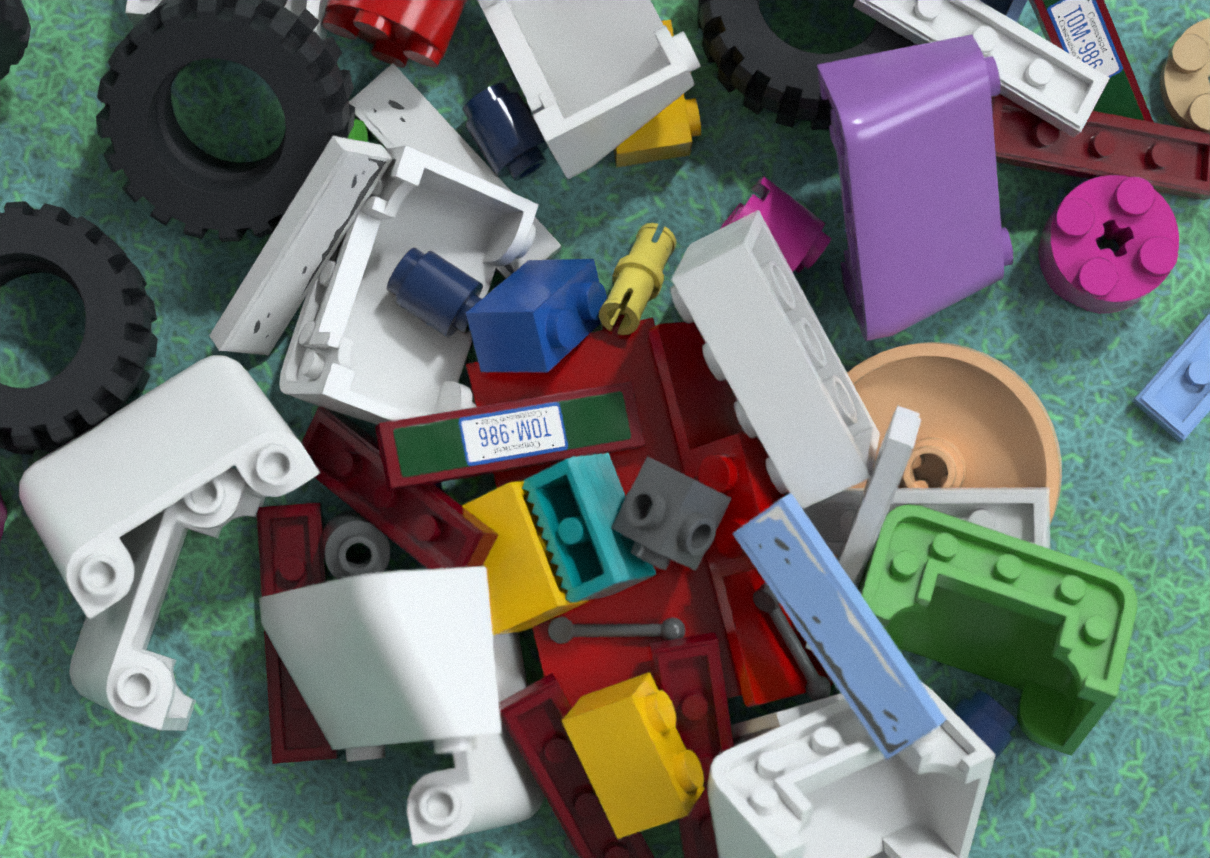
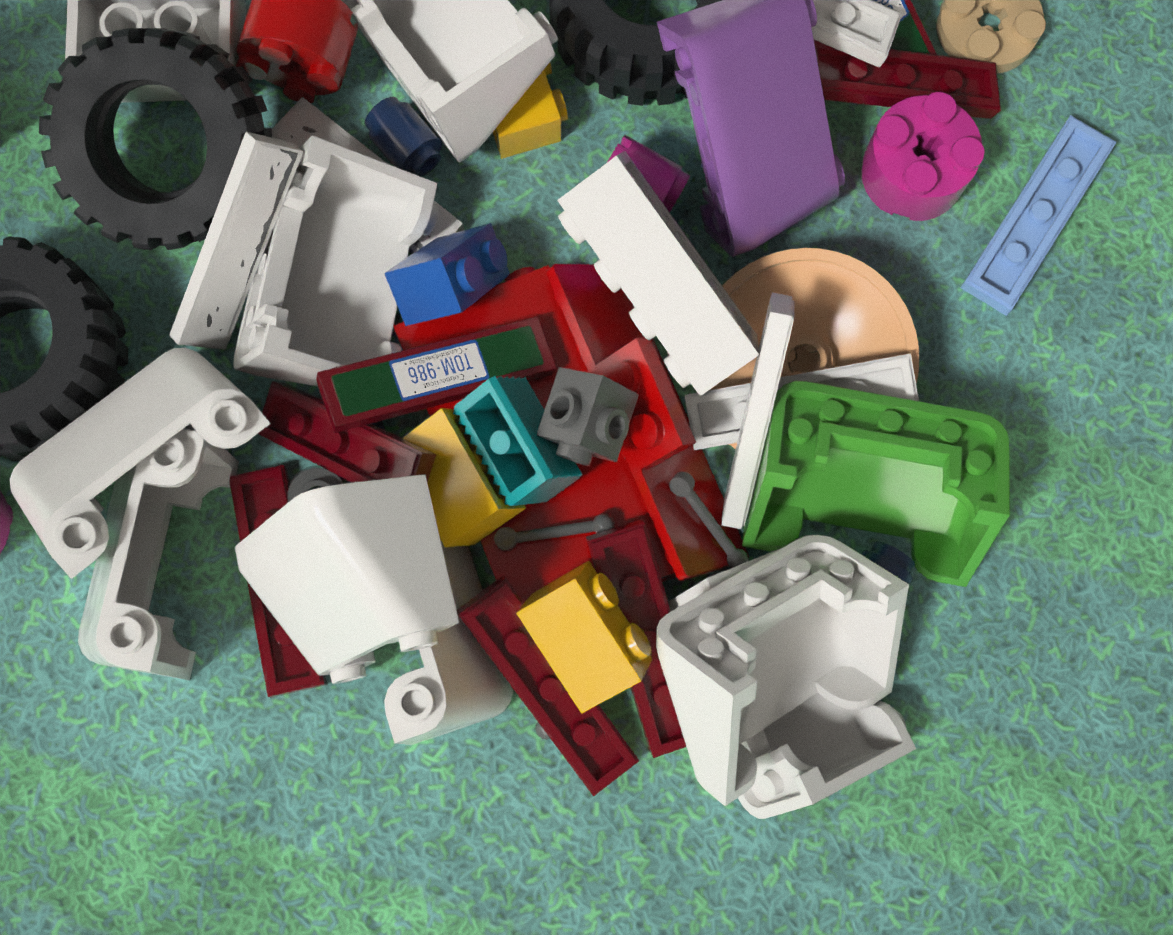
camera: 10 degrees left, 5 degrees down
(434, 291) = (356, 267): dark blue brick -> none
(637, 279) = (530, 237): light yellow pin -> none
(839, 626) = (753, 489): light blue tile -> none

